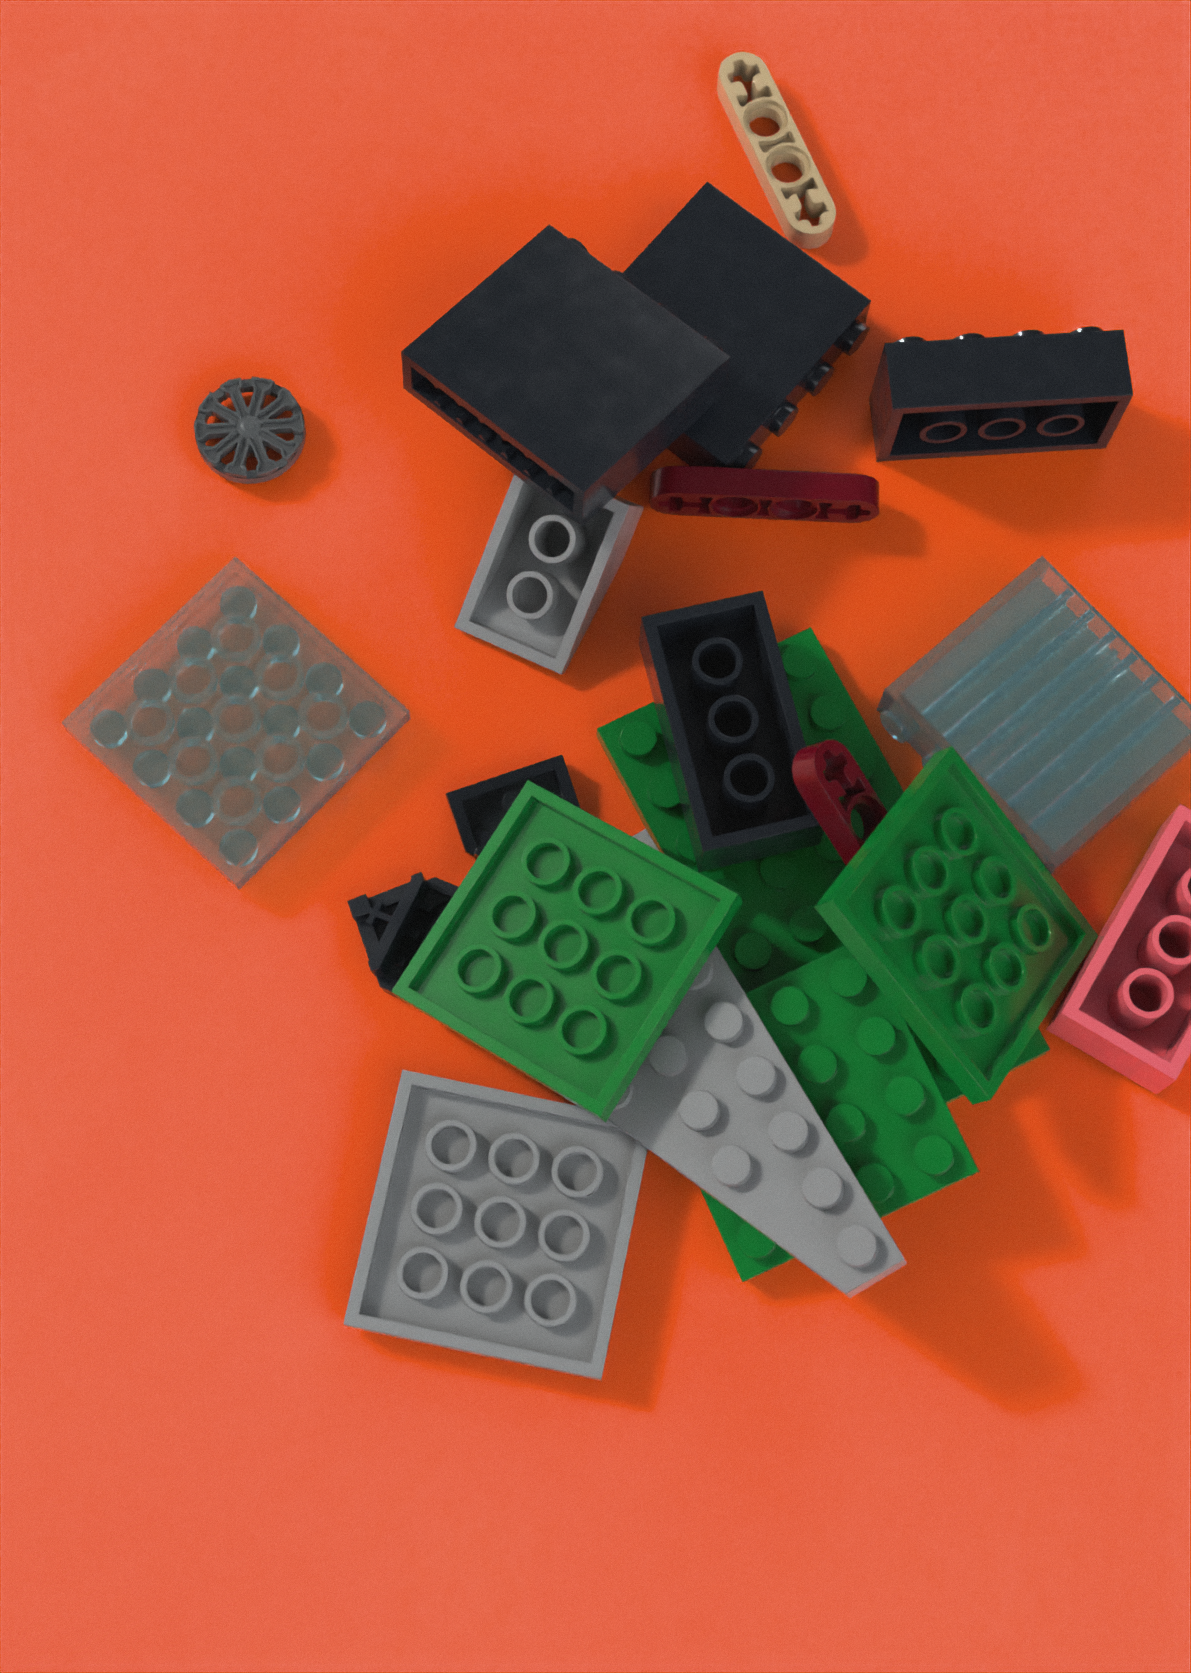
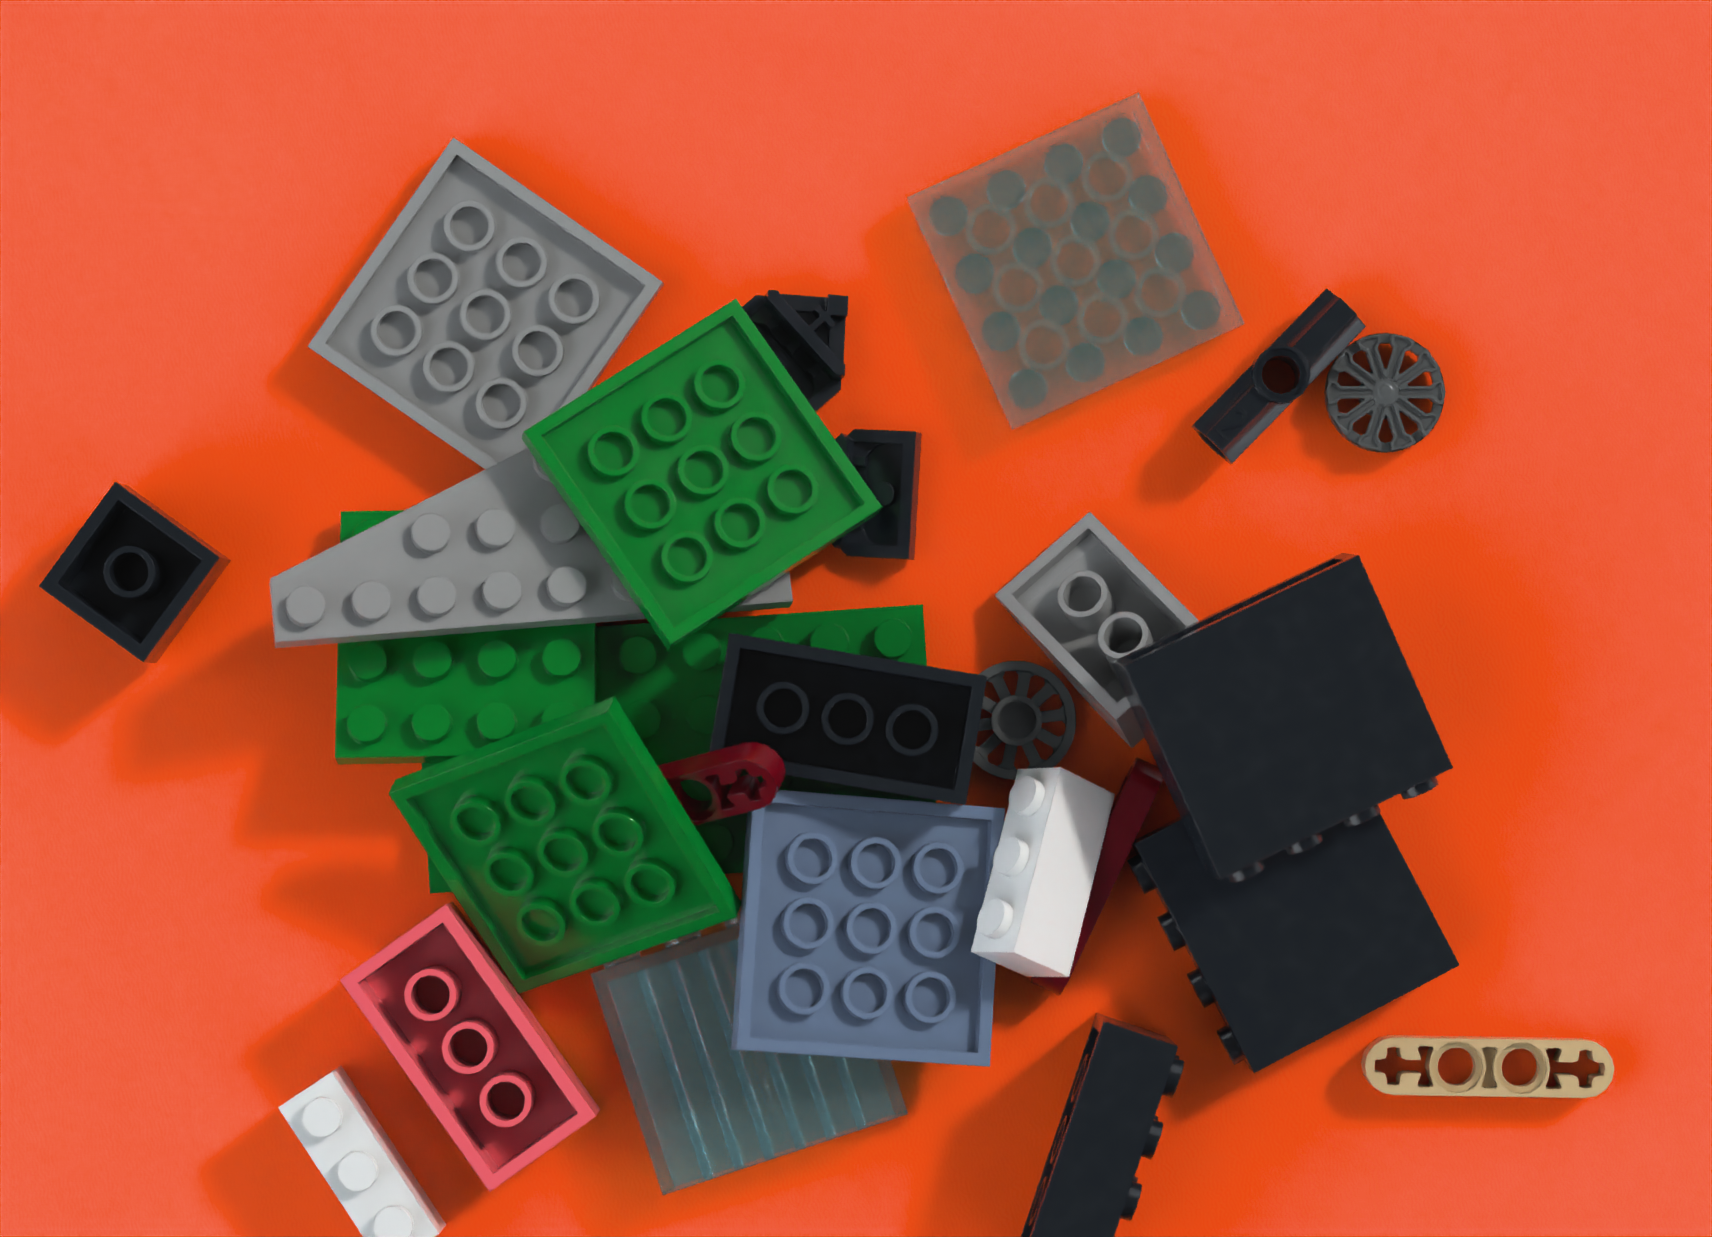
camera: 115 degrees right, 15 degrees up
(239, 499) = (1307, 348): none -> black piece
(652, 601) = (1019, 720): none -> dark grey wheel
(785, 525) = (1043, 872): none -> white brick
(892, 1449) = (134, 573): none -> black brick
(909, 641) = (865, 929): none -> sand blue plate

